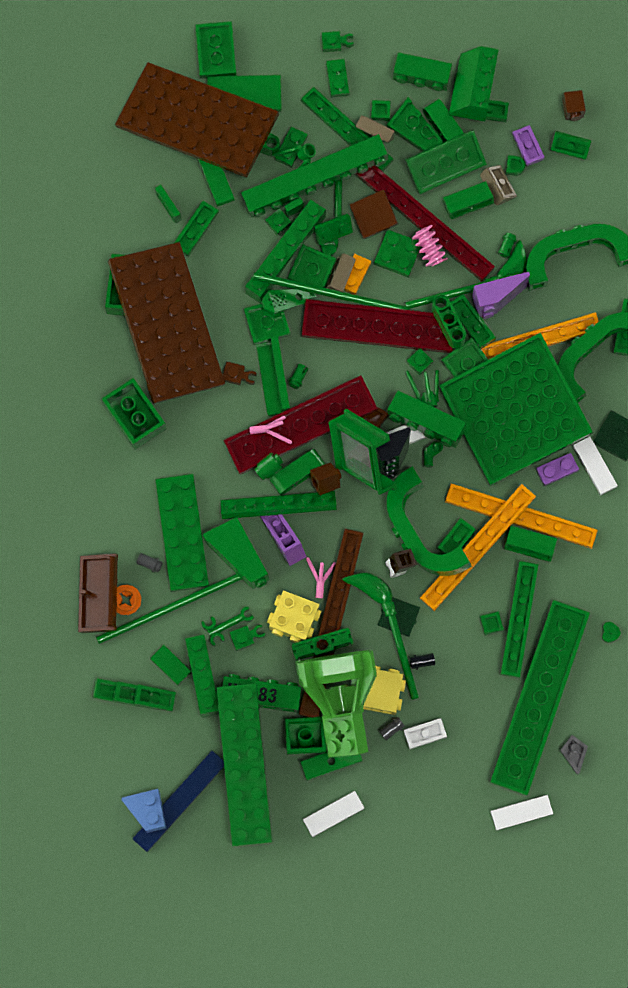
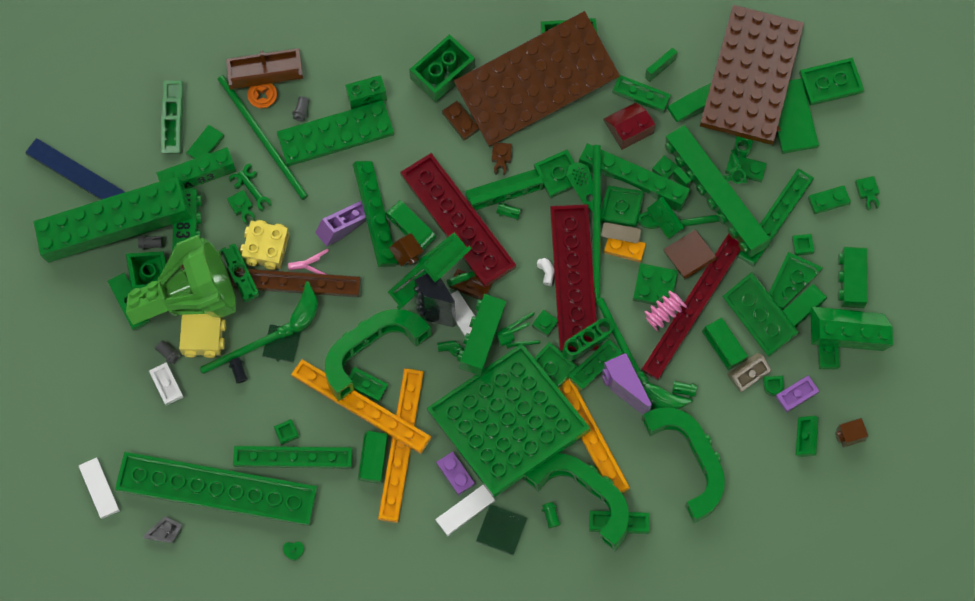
camera: 80 degrees right, 5 degrees down
(145, 493) = (366, 91): none -> green brick
(147, 809) = (63, 145): medium blue wing -> none
(191, 407) = (460, 120): none -> reddish brown plate
(226, 245) = (630, 125): none -> dark red slope
(236, 550) = (320, 183): green slope -> none
(266, 429) = (446, 187): bright pink plant -> none
(269, 466) = (409, 195): green brick -> none
(270, 733) = (149, 242): none -> dark grey pin
(333, 814) = (79, 312): white tile -> none
(365, 349) = (548, 269): none -> white arm
(374, 128) = (778, 240): dark tan slope -> none
(400, 562) = (330, 331): dark brown leg -> none
(612, 387) = (551, 515): none -> green pin

